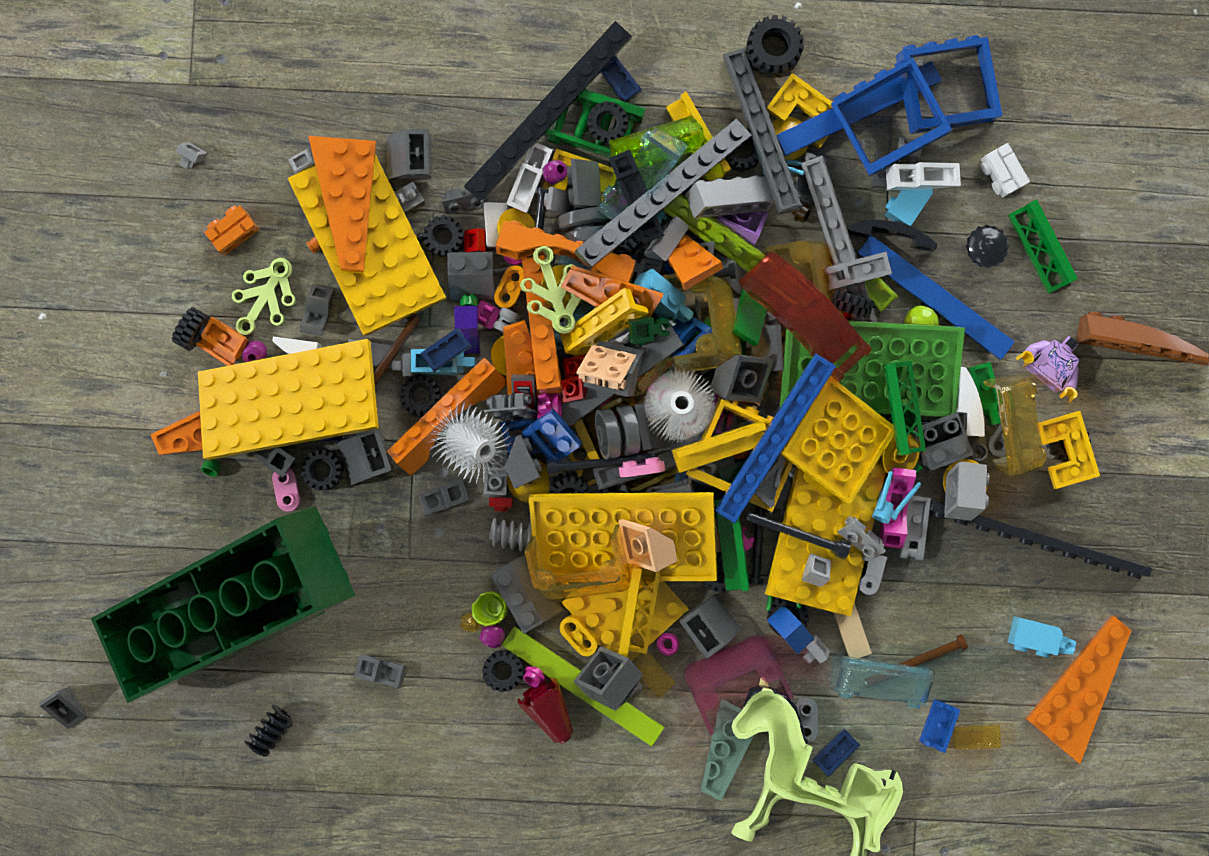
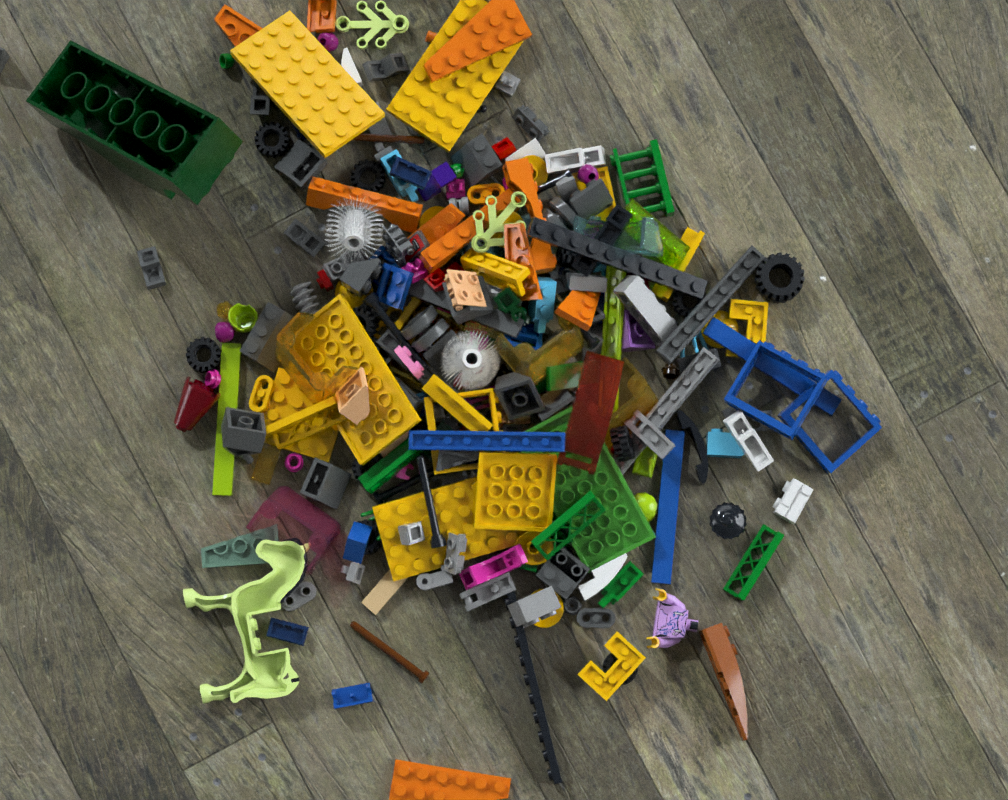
camera: 55 degrees right, 5 degrees down
(270, 732) = (61, 215): black piece -> none
(288, 488) = (243, 123): bright pink plate -> none
(409, 155) = (537, 65): dark grey slope -> none
(437, 224) = (498, 114): black tyre -> none
(548, 111) = (628, 143): black plate -> none
(604, 108) = (647, 179): black tyre -> none
(620, 80) = (686, 181): dark blue plate -> none
(881, 680) = (359, 629): clear light blue windscreen -> none
(884, 510) = (485, 557): medium azure plant -> none
(977, 736) = (360, 729): clear yellow plate -> none
(1018, 424) = (606, 615): clear yellow windscreen -> none
(1040, 637) = (462, 732): medium azure hinge -> none

